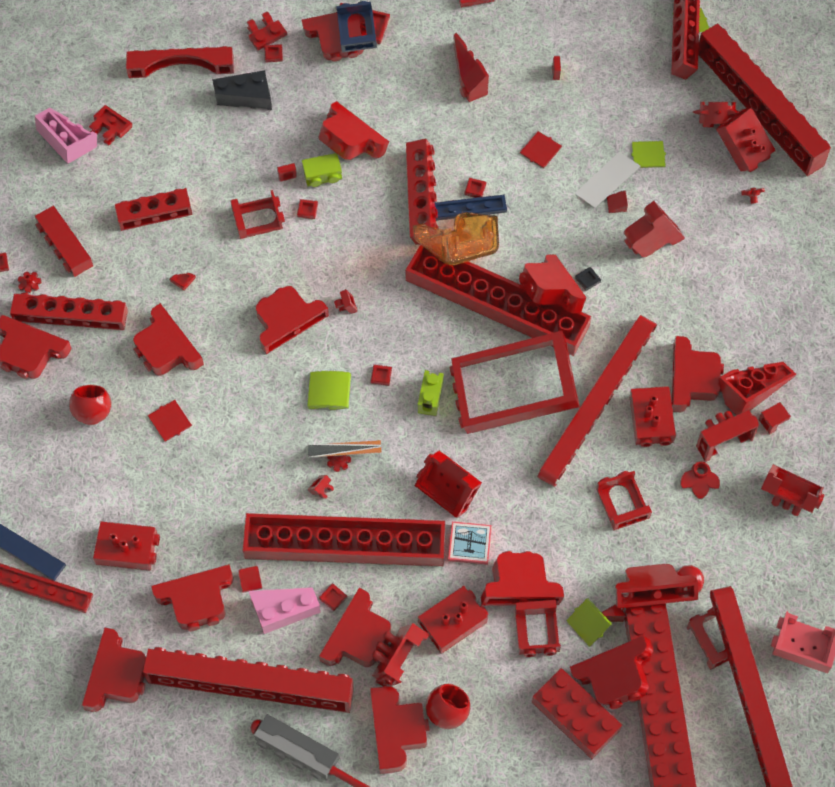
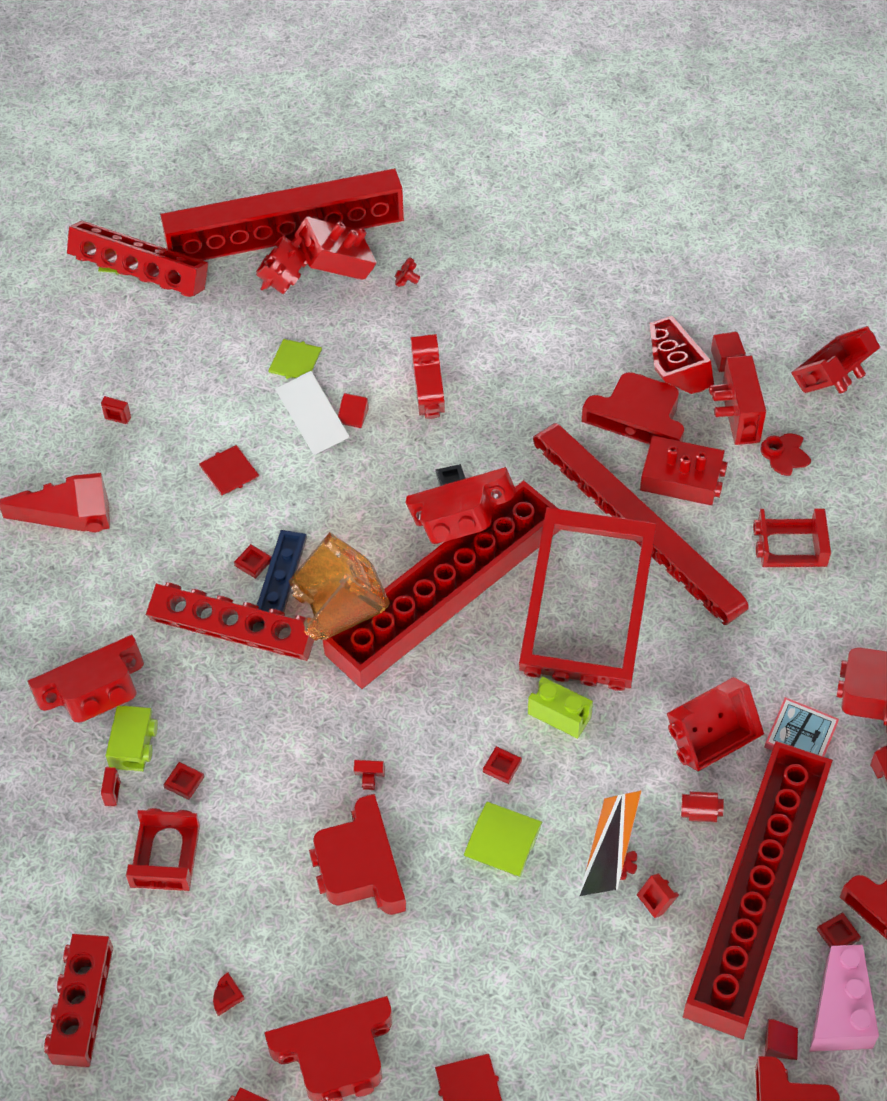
camera: 70 degrees left, 10 degrees down
(391, 495) = (702, 806): none -> red brick

